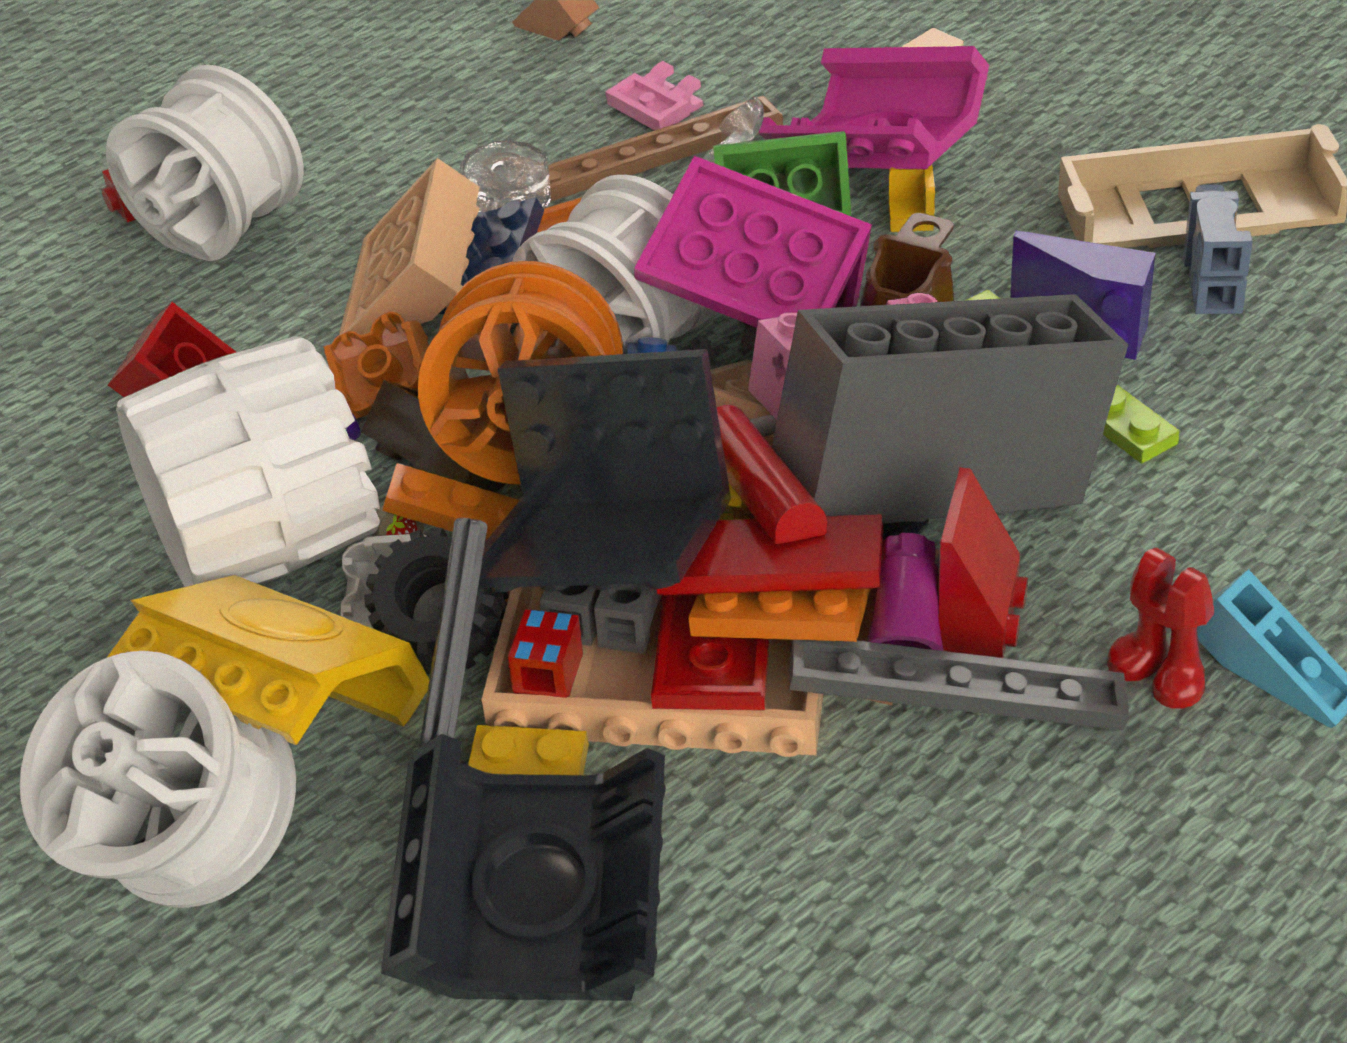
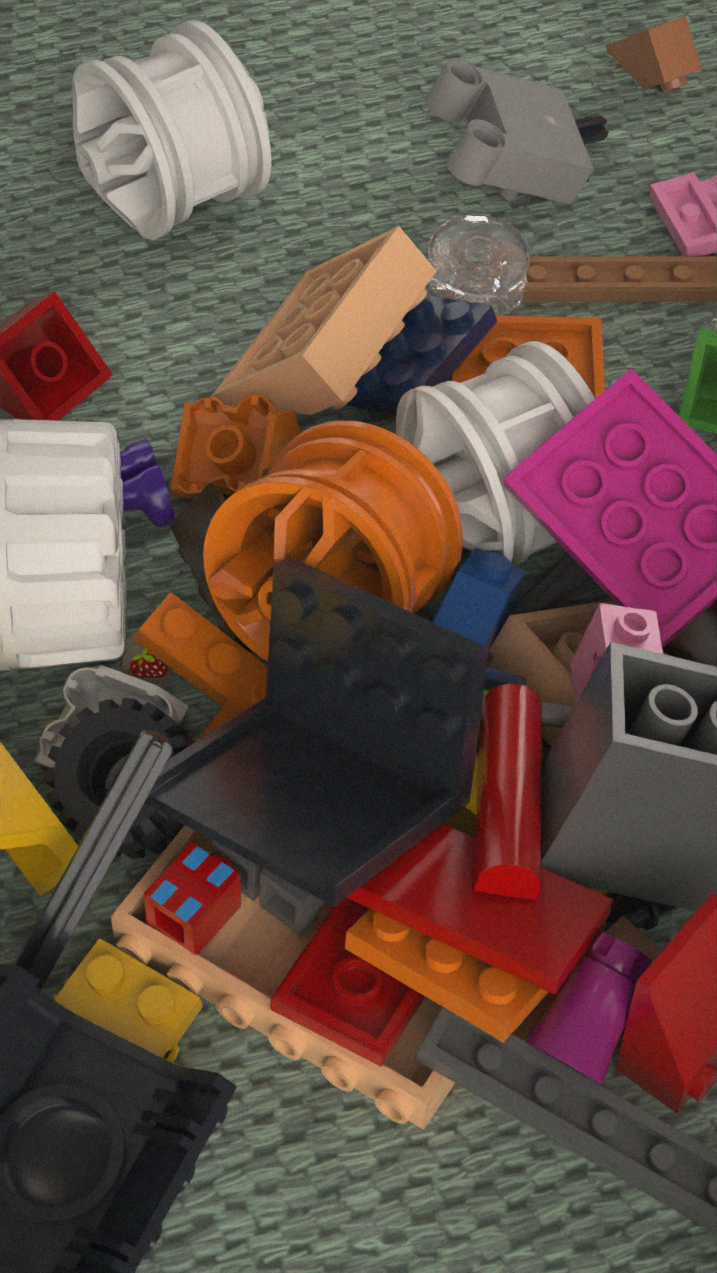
camera: 20 degrees right, 10 degrees up
(481, 86) = (515, 134): none -> light grey piece

